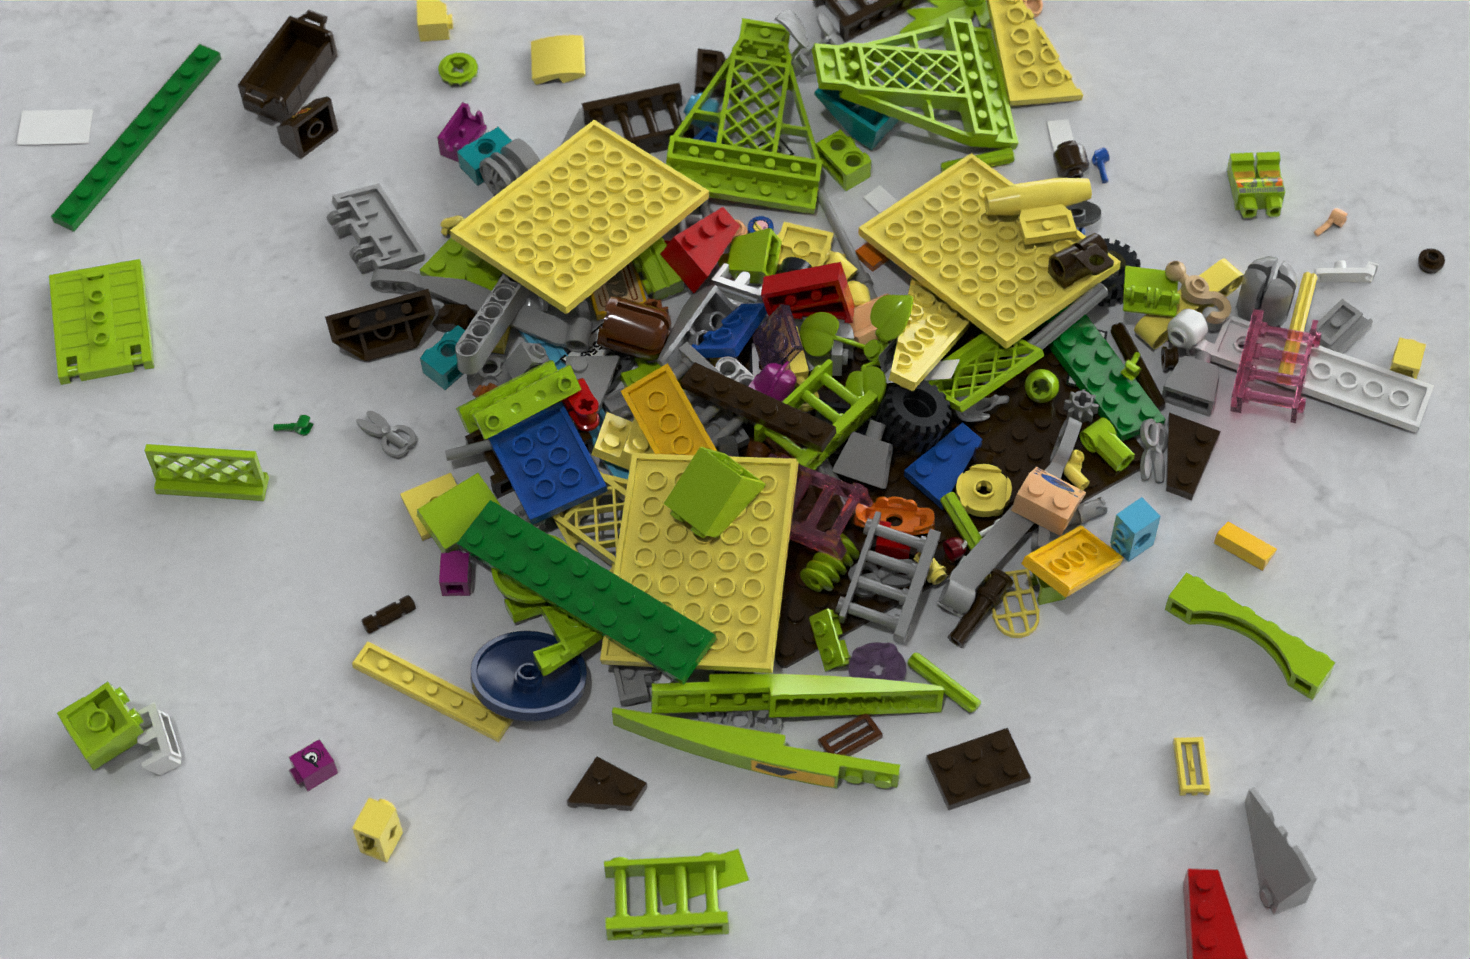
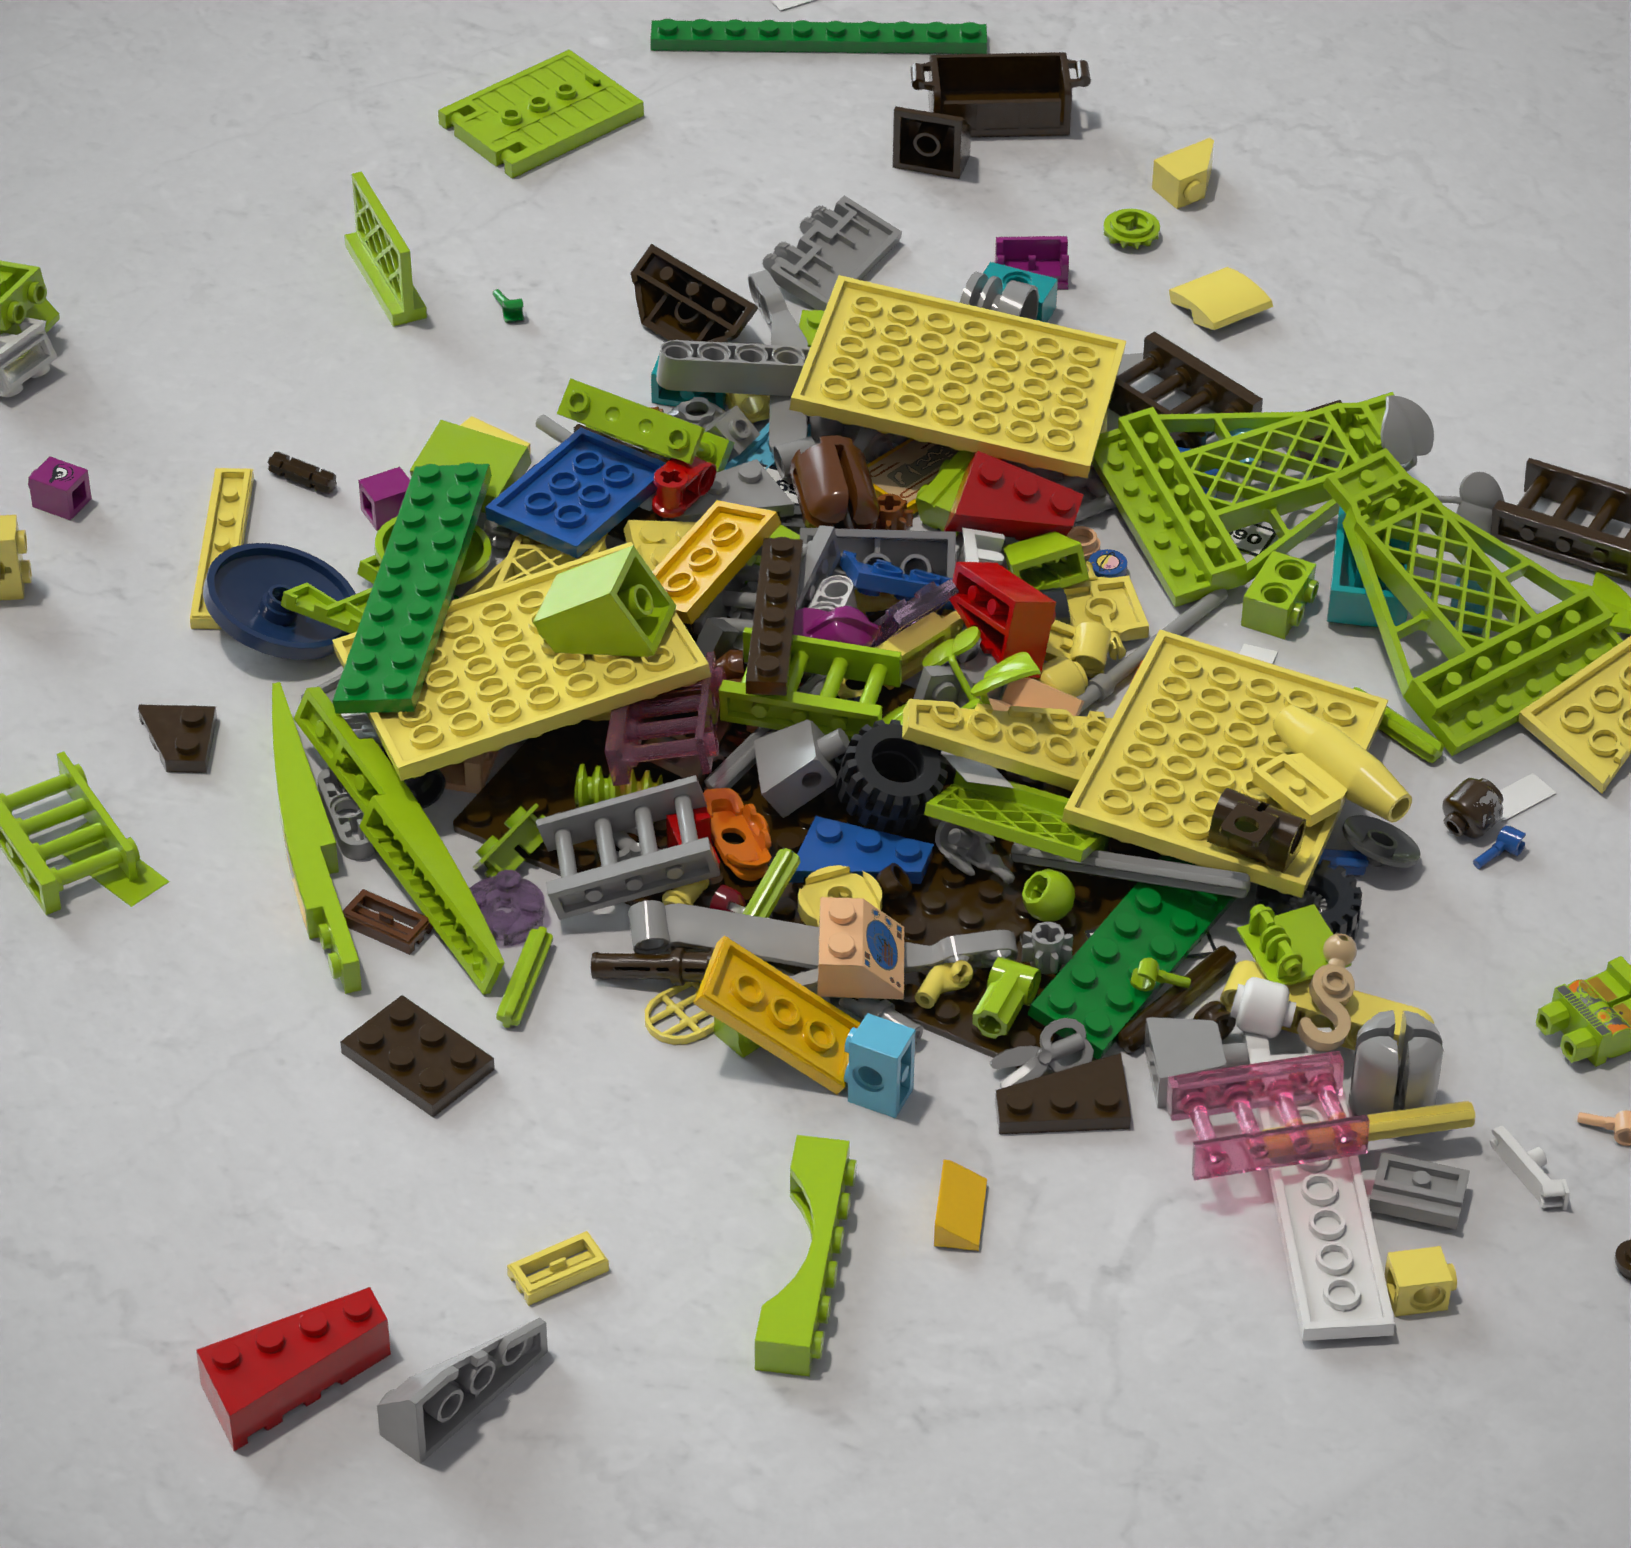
camera: 60 degrees right, 15 degrees down
(389, 434) = (551, 376): light grey piece -> none

